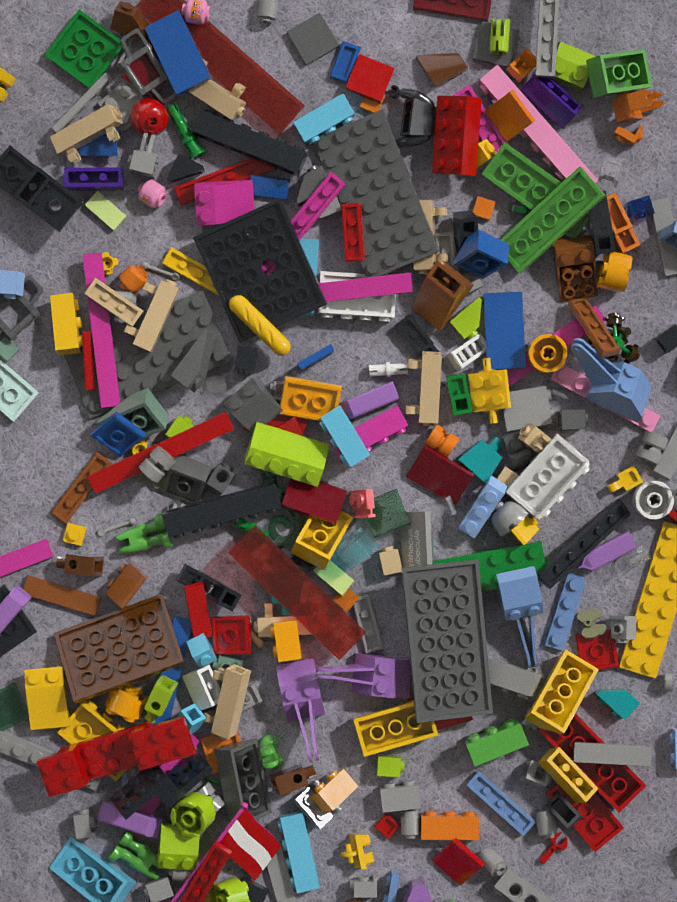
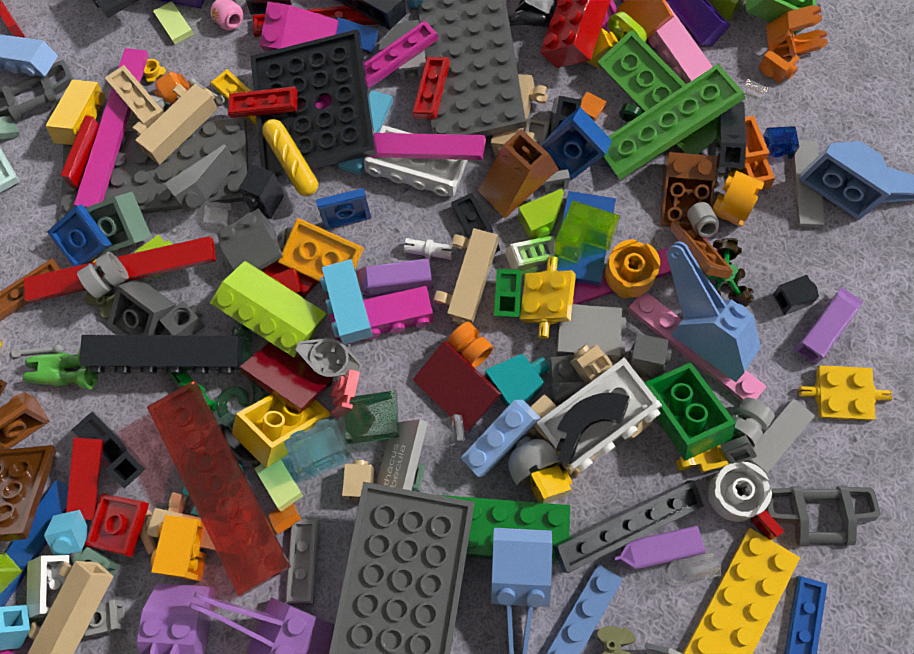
camera: 15 degrees right, 20 degrees down
(220, 280) = (262, 102): none -> red tile
(344, 480) = (328, 357): none -> light grey hat
(498, 134) = (626, 25): none -> lime beam
(501, 328) = (582, 226): none -> clear neon green brick
(546, 476) = (585, 413): none -> black arch
(592, 299) = (703, 219): none -> light grey brick
(608, 452) = (690, 411): none -> green brick
(648, 470) = (738, 450): none -> dark grey tile

